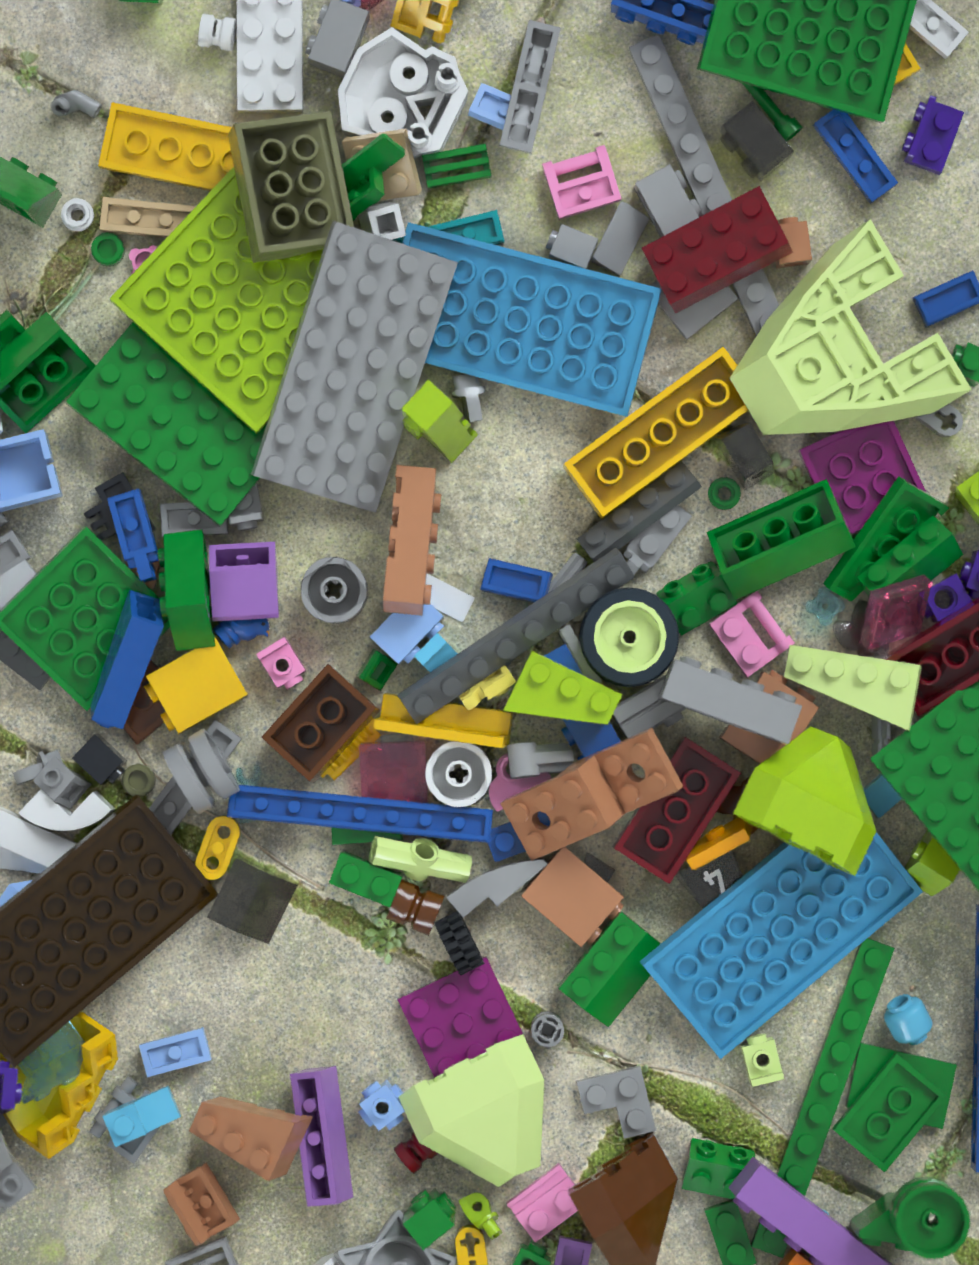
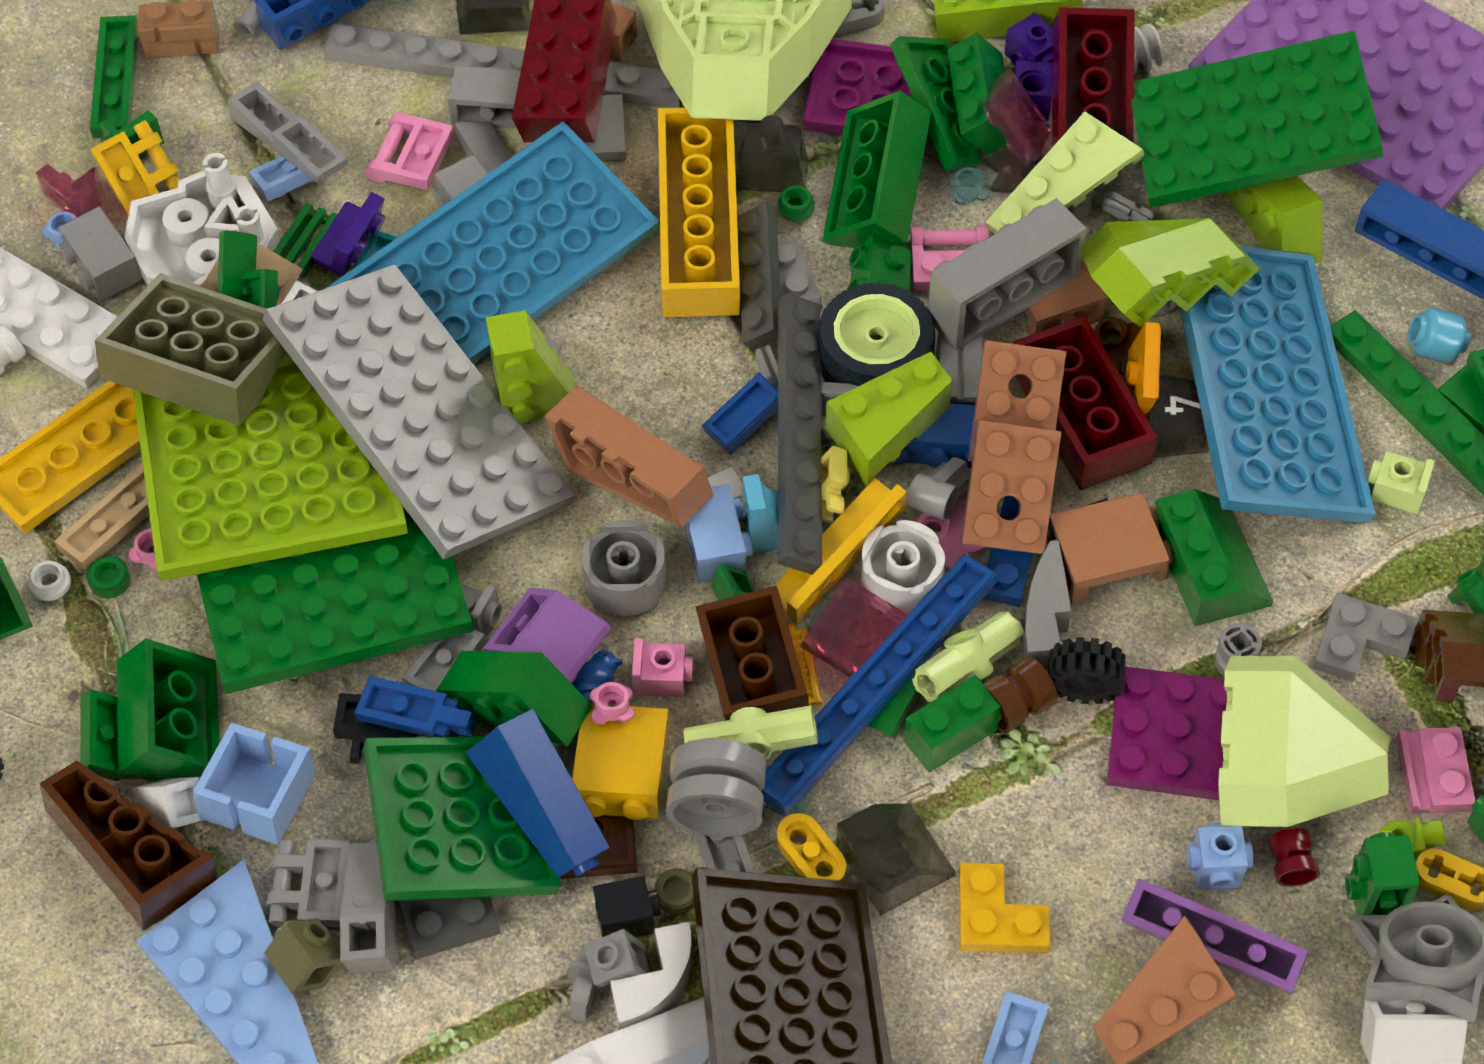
camera: 55 degrees left, 30 degrees down
(212, 659) = (611, 694): none -> bright pink plate
(248, 987) = (990, 923): none -> yellow plate
(259, 763) = (762, 730): none -> yellowish green piece
(475, 198) = (348, 234): none -> dark purple bracket

